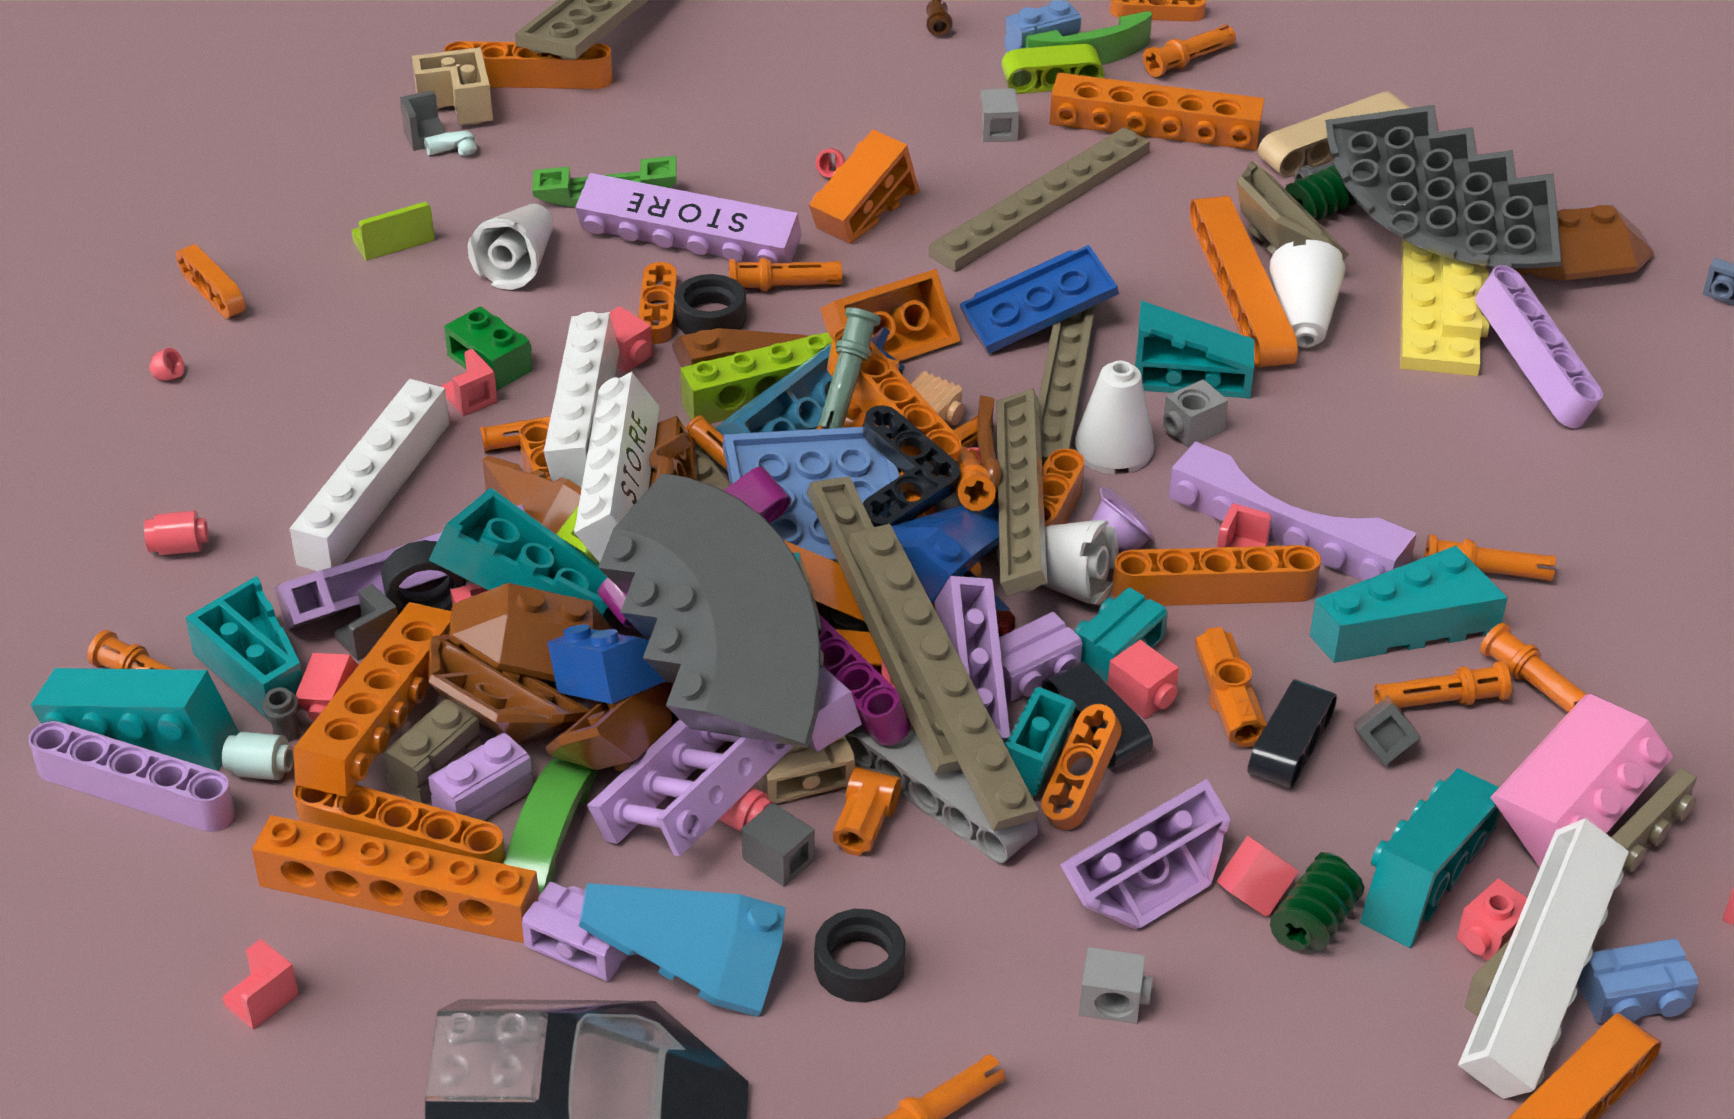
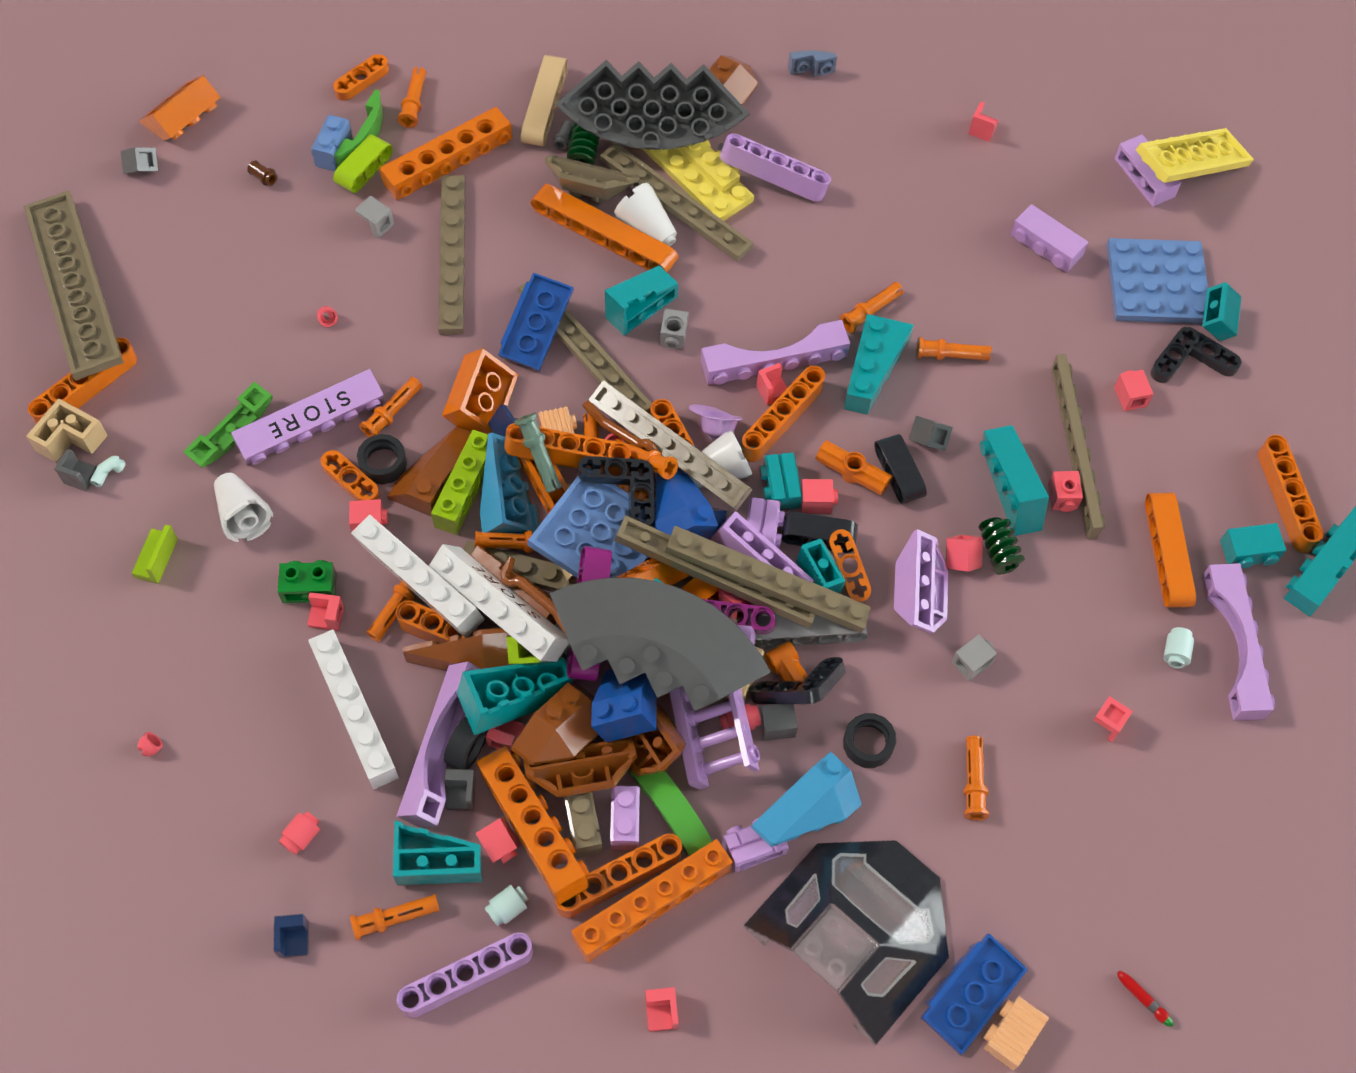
camera: 50 degrees left, 20 degrees up
(42, 604) = (291, 935): none -> dark blue panel
(149, 708) = (424, 945): teal wedge -> none
(210, 281) = (100, 673): orange beam -> none
(281, 708) = (492, 867): dark grey pin -> none
(858, 830) = (809, 691): none -> black beam
(864, 187) = (370, 322): orange wedge -> none
(1116, 422) = (654, 368): white cone -> none
(1371, 315) = (680, 203): none -> dark tan plate
(1465, 684) = (932, 383): orange pin -> none
(1544, 960) = (1111, 495): white brick -> none
(1583, 769) = (1032, 394): bright pink slope -> none
(1638, 981) = (1135, 471): medium blue brick -> none

